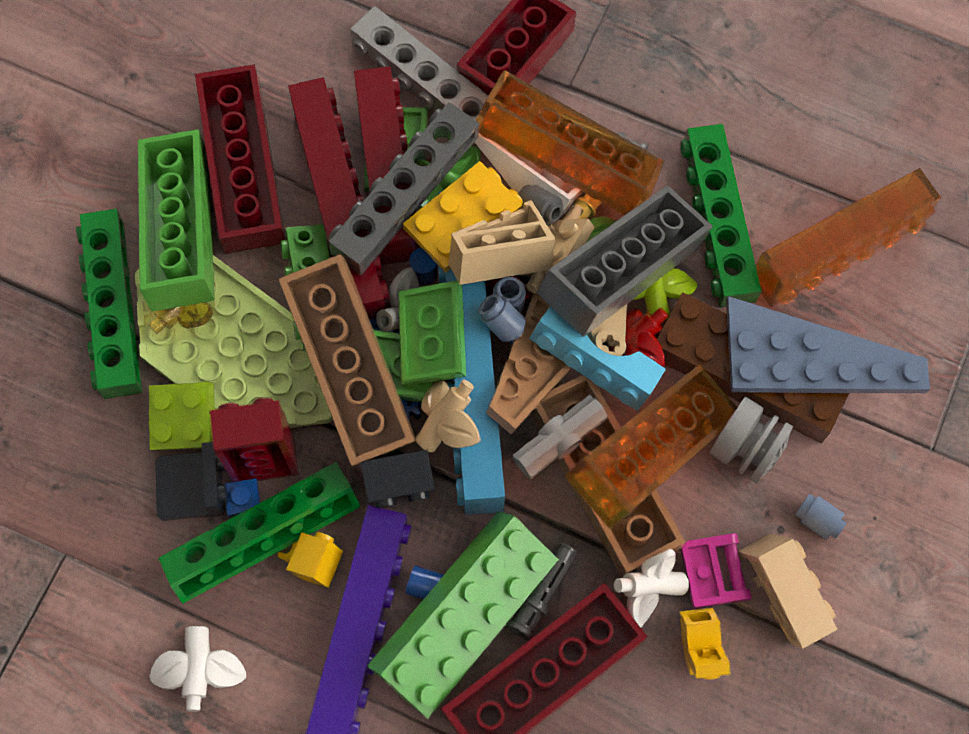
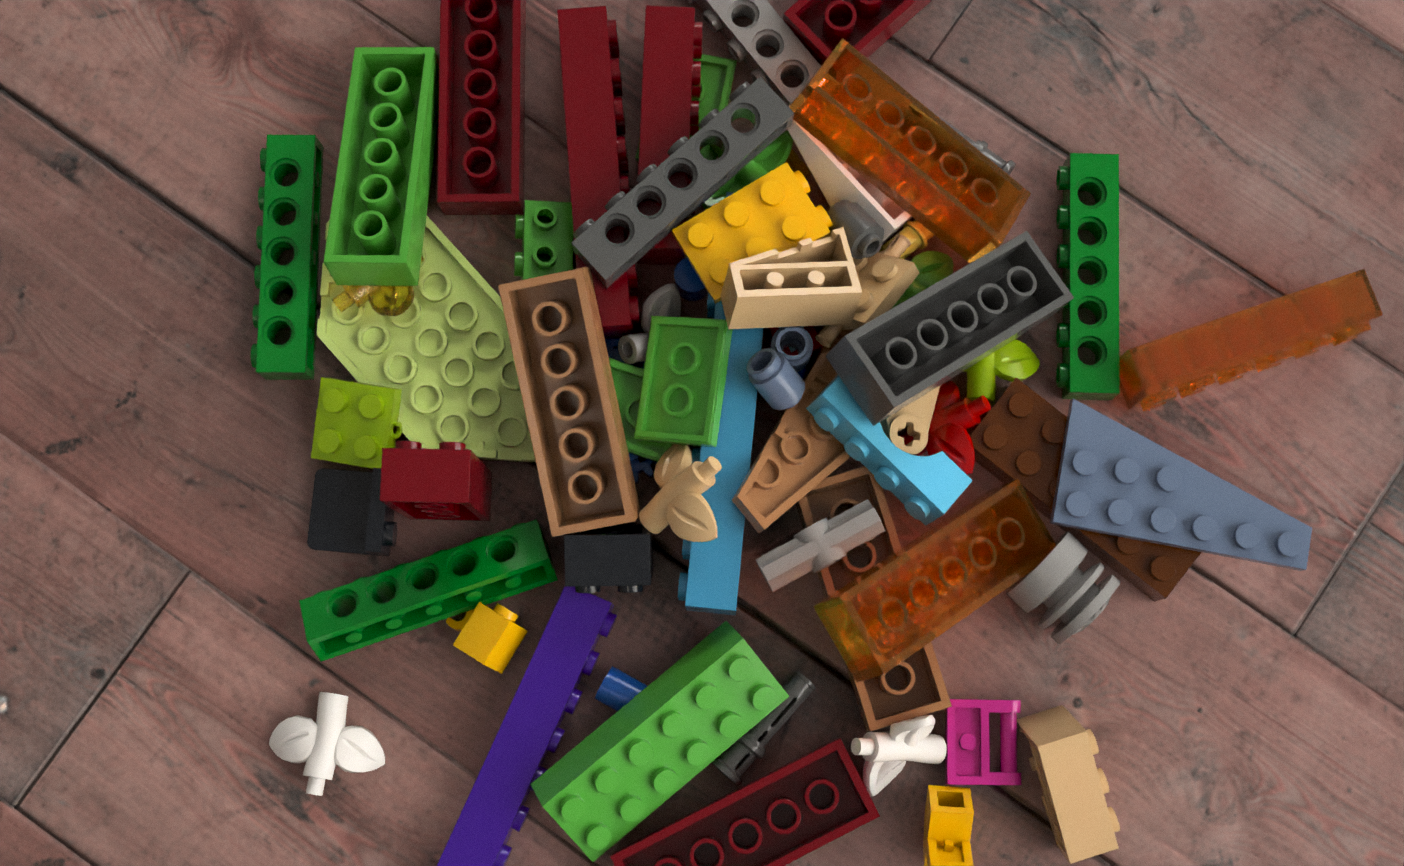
camera: 15 degrees right, 10 degrees up
(242, 496) = (415, 538): blue plate -> none
(821, 517) = (1131, 699): sand blue brick -> none

